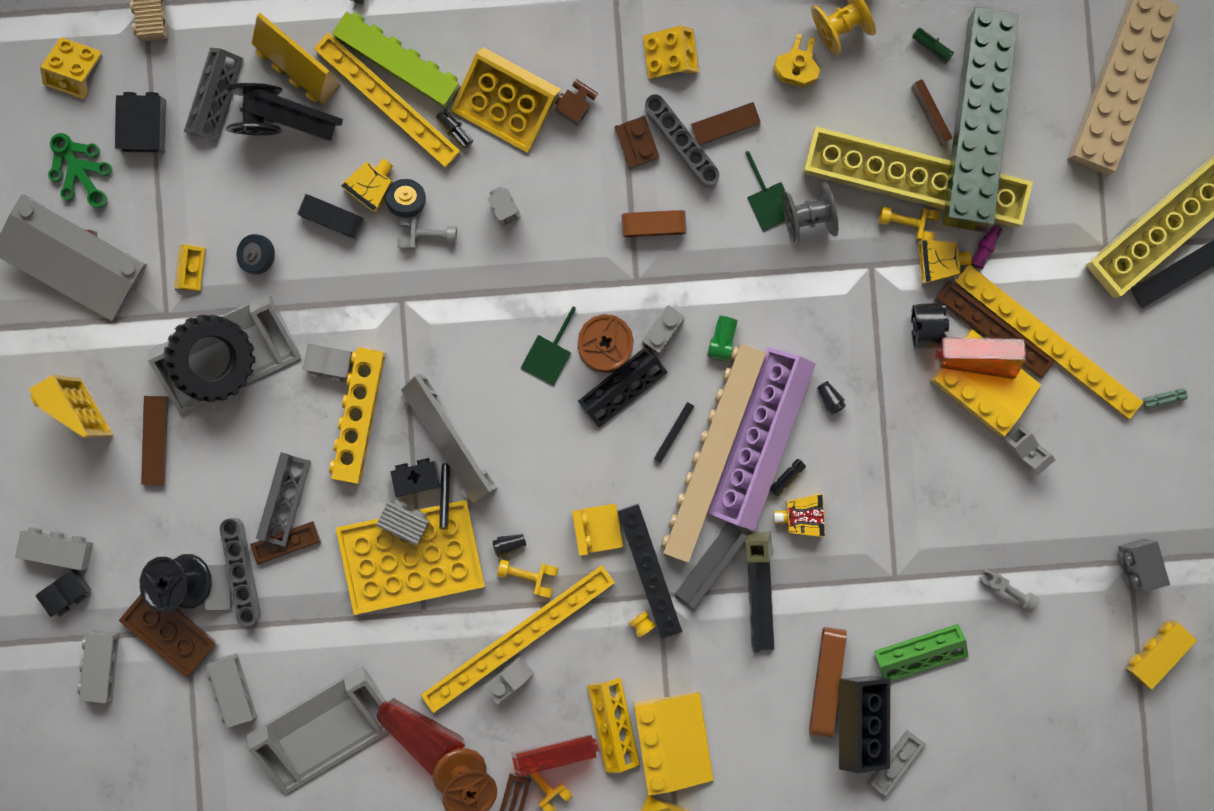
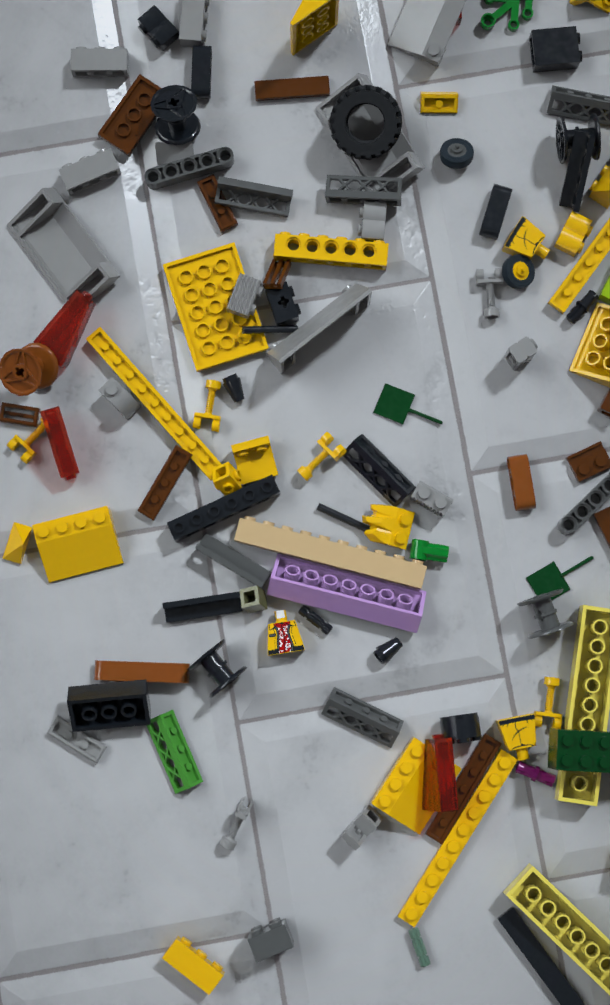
camera: 85 degrees right, 5 degrees down
(123, 546) = (201, 71): none -> black beam
(297, 373) = (358, 196): none -> dark grey fence
(366, 128) = (573, 234): none -> yellow brick
(377, 484) = (273, 274): none -> reddish brown tile
(597, 430) = (326, 439): none -> yellow bar
(609, 727) = (86, 488): yellow fence -> none
(611, 329) = (414, 437): dark orange piece -> none
(612, 635) = (165, 482): none -> reddish brown tile
(616, 564) = (226, 478): none -> yellow brick
(642, 623) = (177, 506): yellow wheel -> none
(688, 381) = (389, 525): none -> yellow plate
(835, 596) = (217, 668): none -> black piece
(902, 432) = (364, 714): none -> dark grey fence

